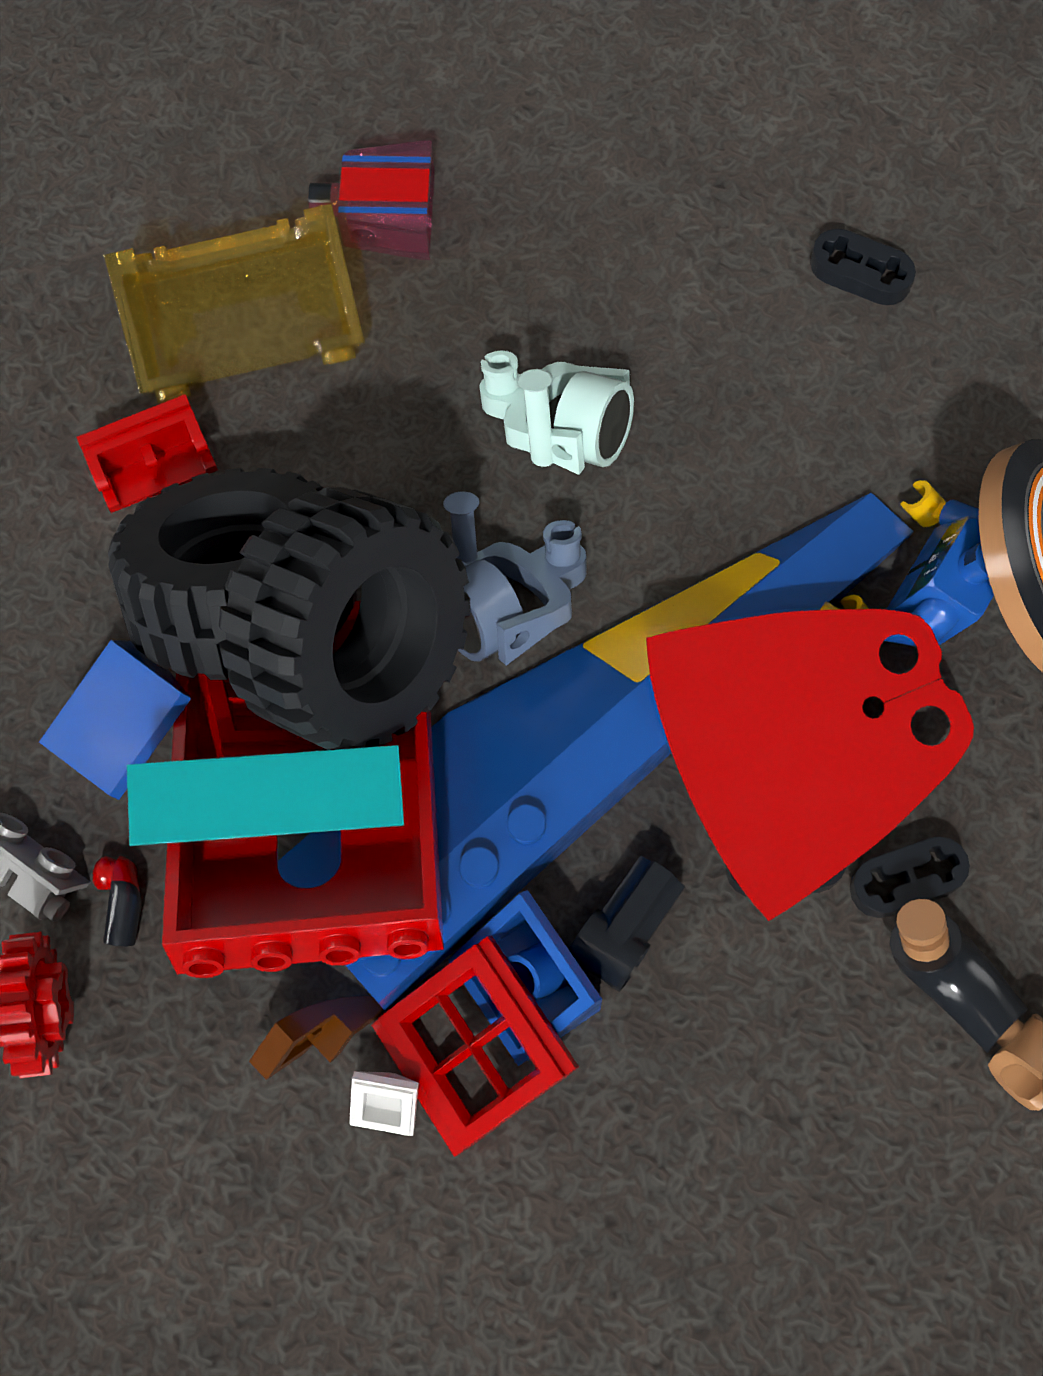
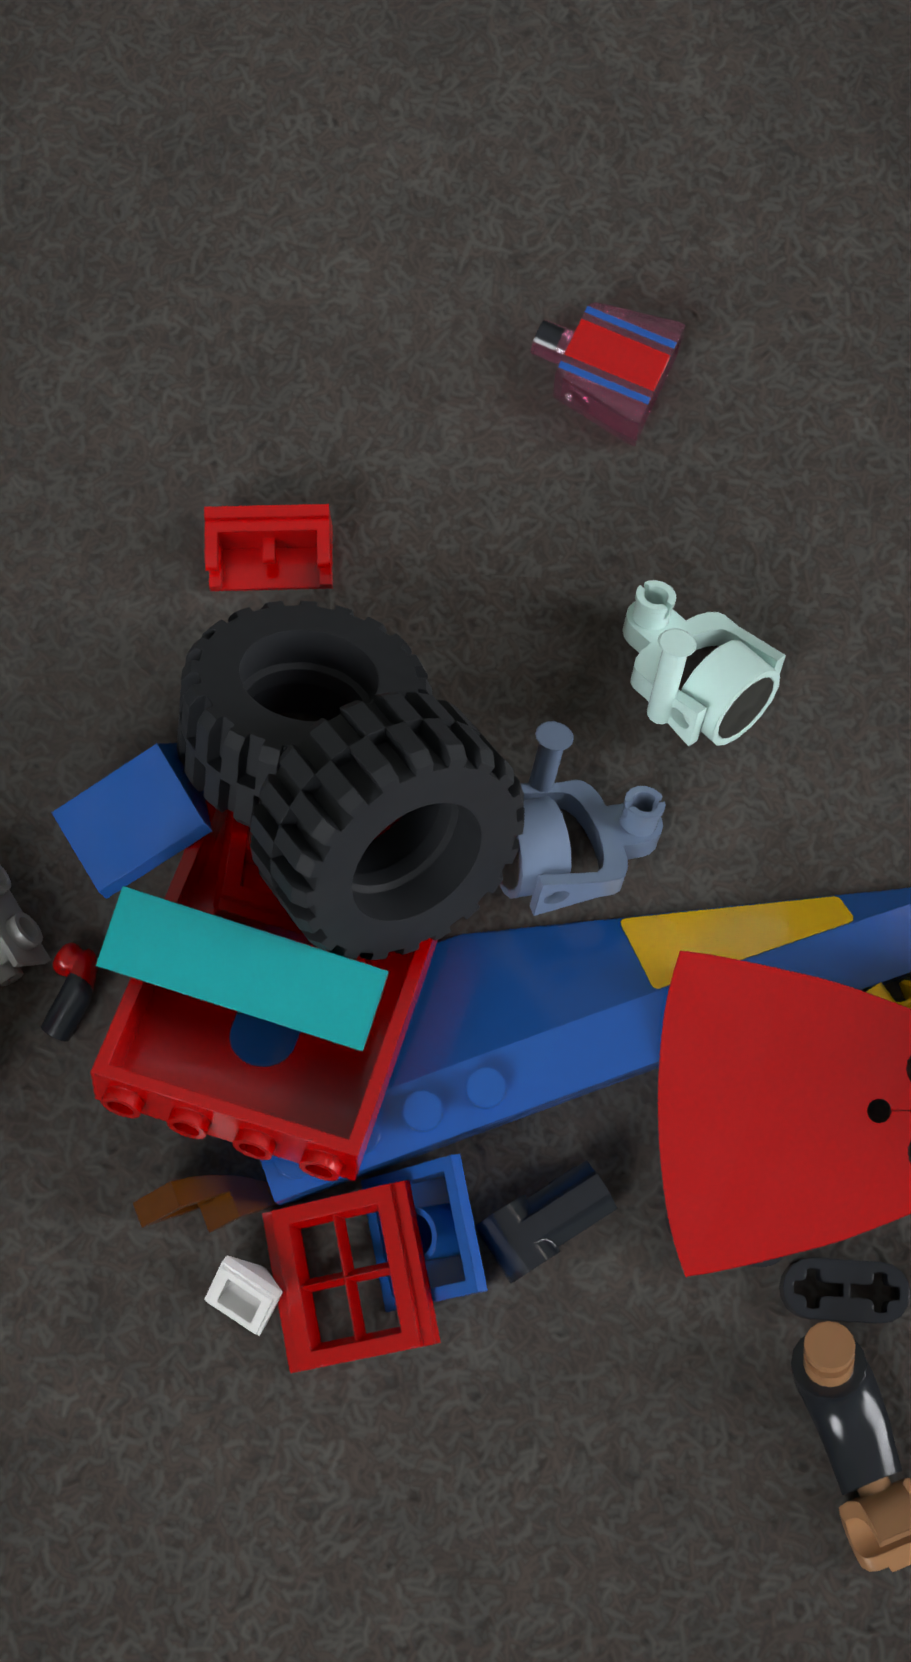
camera: 20 degrees right, 5 degrees up
(236, 304) = (417, 425): clear yellow windscreen -> none

